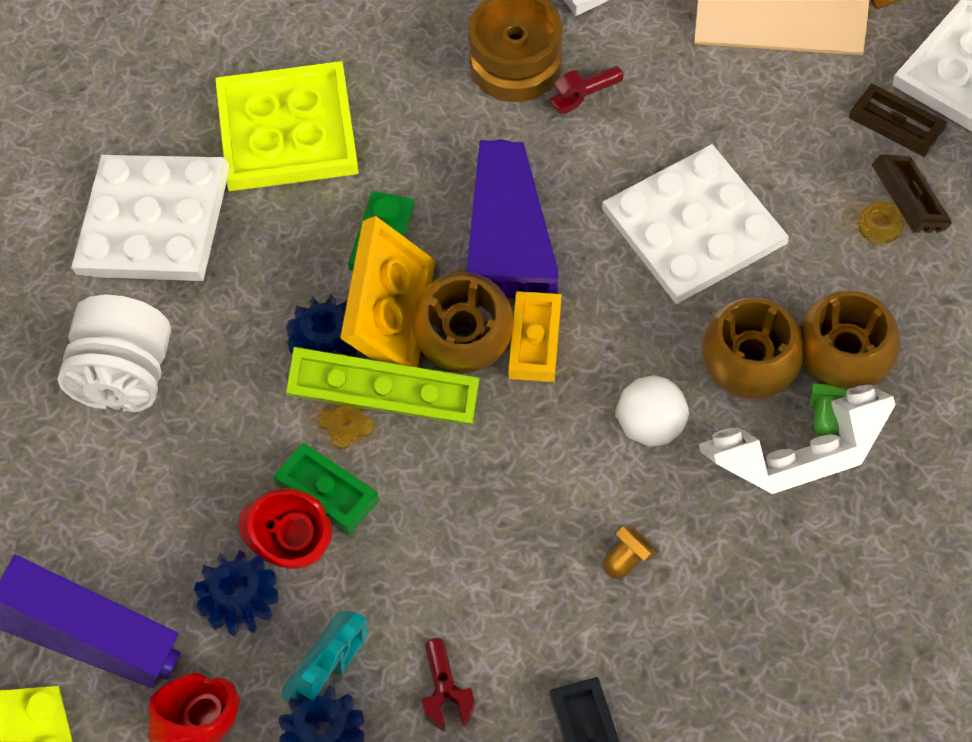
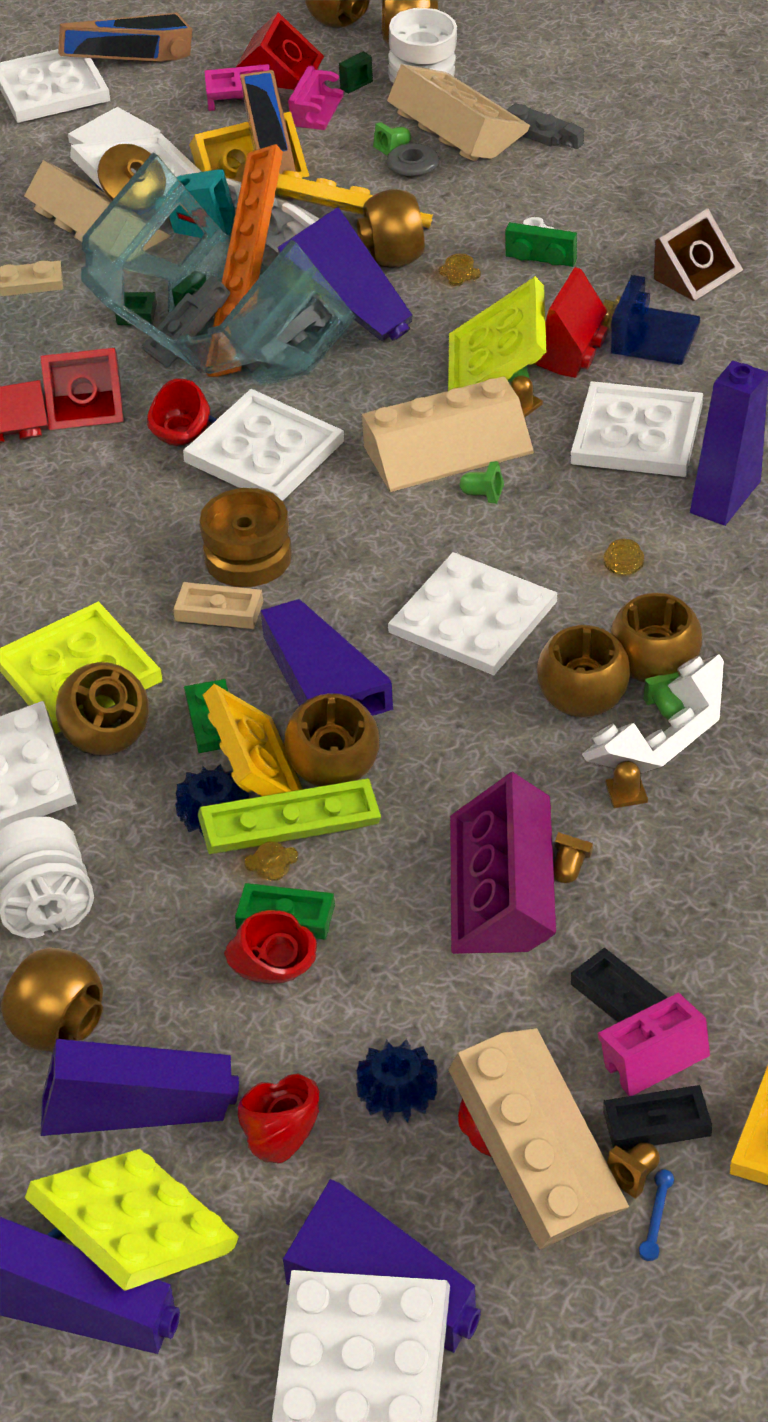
camera: 25 degrees left, 15 degrees down
(57, 495) = (52, 998): none -> pearl gold wheel
(252, 599) = (257, 1014): clear blue gear -> none
(295, 162) = (82, 688): none -> pearl gold wheel
(329, 653) = (366, 1024): teal slope -> none
(444, 687) = (478, 1013): dark red bar -> none
(453, 111) = (218, 605): none -> tan plate
(535, 336) = (399, 742): yellow plate -> none
(552, 540) = (502, 870): none -> magenta slope
(574, 87) = (315, 549): dark red bar -> none
(652, 411) = (525, 750): white hair -> none
(729, 497) = (626, 786): none -> pearl gold piece
(791, 75) = (484, 483): none -> bright green piece
(893, 124) = (590, 489): dark brown tile -> none
(911, 193) = (636, 528): dark brown tile -> none

